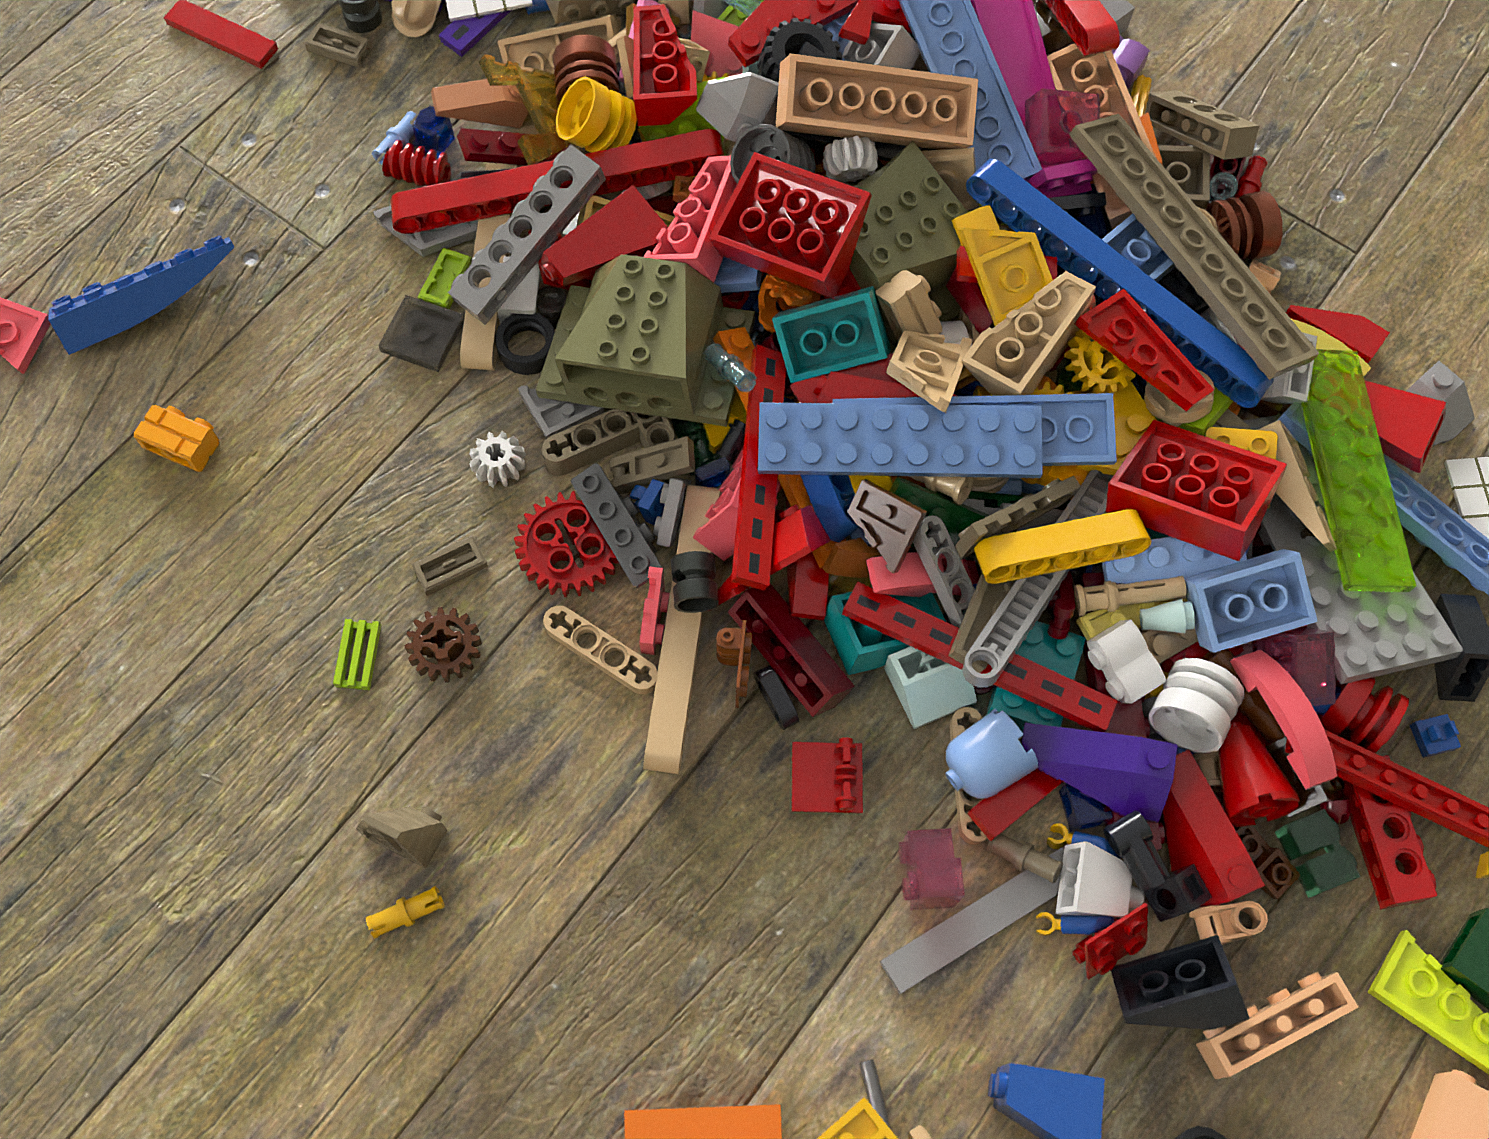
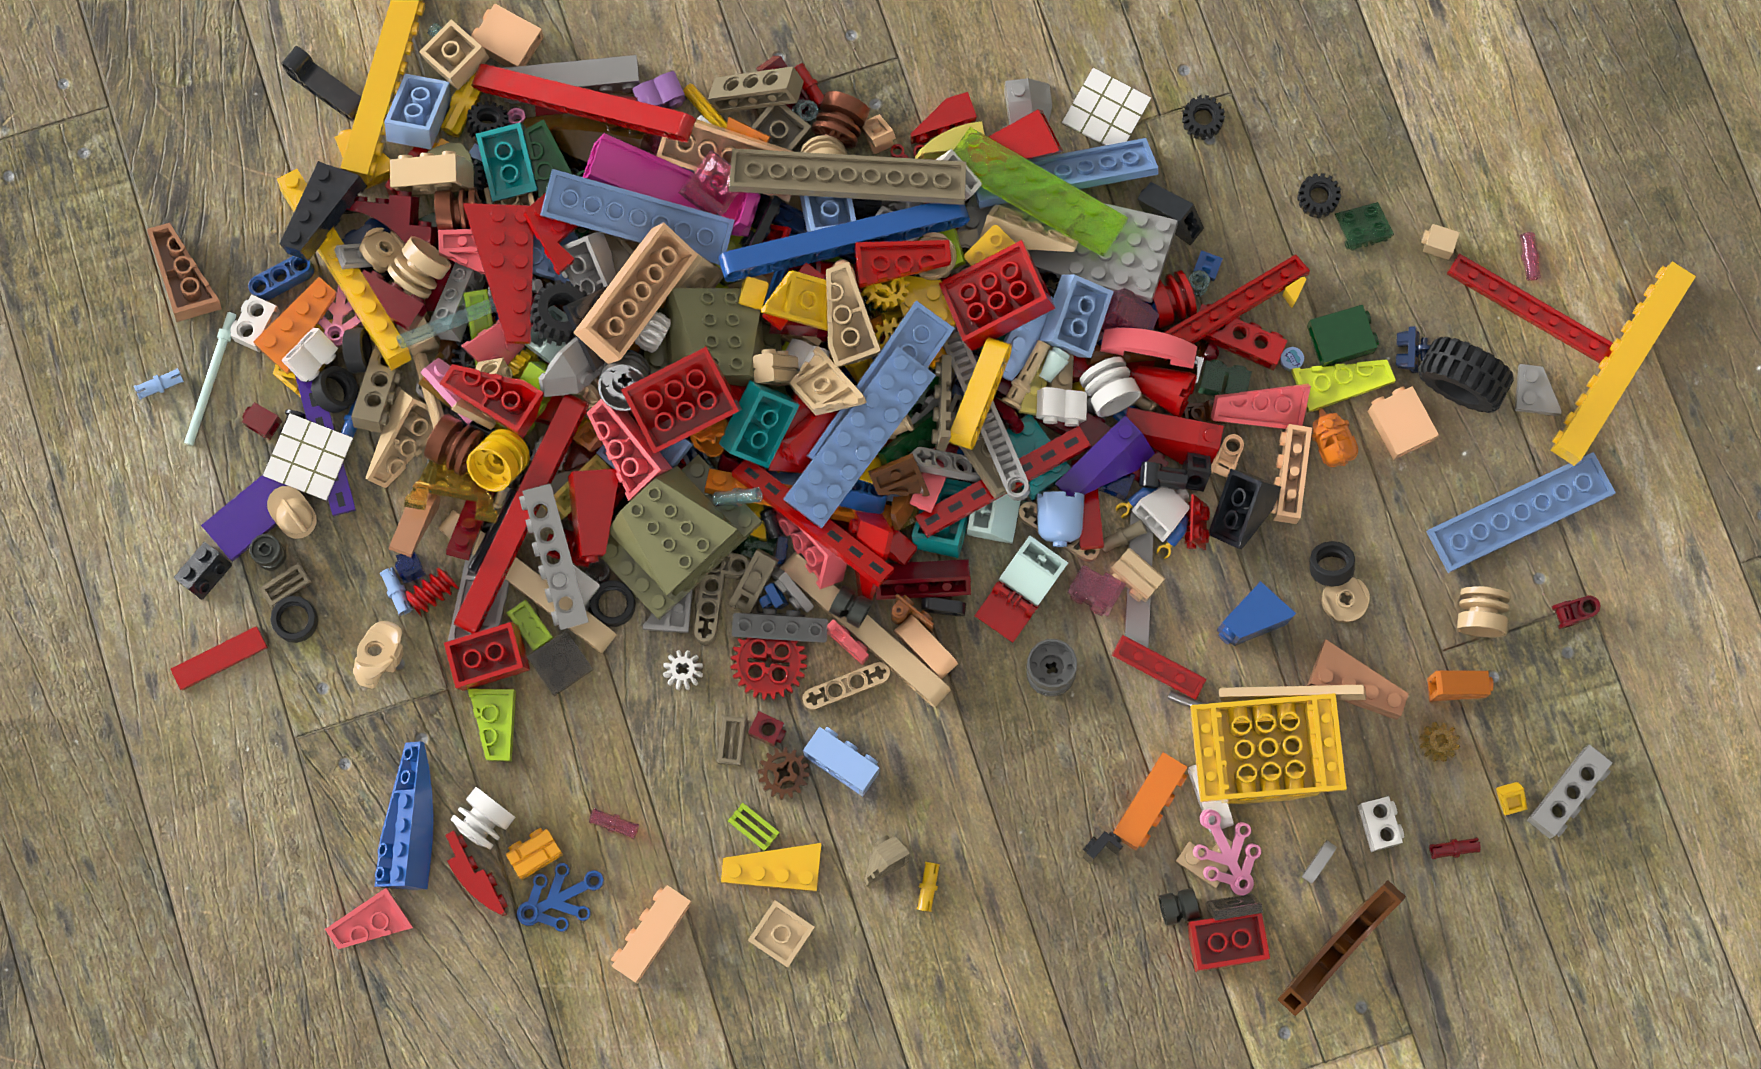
camera: 55 degrees left, 10 degrees up
(106, 400) = (479, 883): none -> red slope
(139, 494) = (556, 899): none -> blue plant
(146, 618) = (651, 934): none -> light nougat brick
(181, 356) = (482, 819): none -> white wheel
(236, 770) = (781, 934): none -> tan plate
(266, 499) = (614, 823): none -> clear pink pin
(299, 52) = (287, 602): none -> black tyre
(301, 153) = (370, 668): none -> tan piece
(314, 311) = (495, 720): none -> lime wing
(323, 718) = (781, 868): none -> yellow wing
(376, 252) = (487, 656): none -> red brick
(482, 579) = (759, 722): none -> dark red brick
(497, 697) = (841, 760): none -> light blue brick
(589, 1098) = (1095, 845): none -> black bracket
(711, 709) = (925, 647): none -> light nougat beam
(809, 868) = (1047, 655): none -> dark grey wheel
(892, 1022) = (1159, 667): none -> red tile
(897, 773) = (1033, 571): none -> light aqua slope
(988, 908) = (1137, 575): none -> tan brick
(1329, 925) = (1263, 407): none -> coral wing
(1365, 1052) = (1334, 439): none -> orange helmet
(1409, 736) = (1199, 276): none -> clear light blue bush
(1417, 920) = (1291, 358): none -> light blue tile

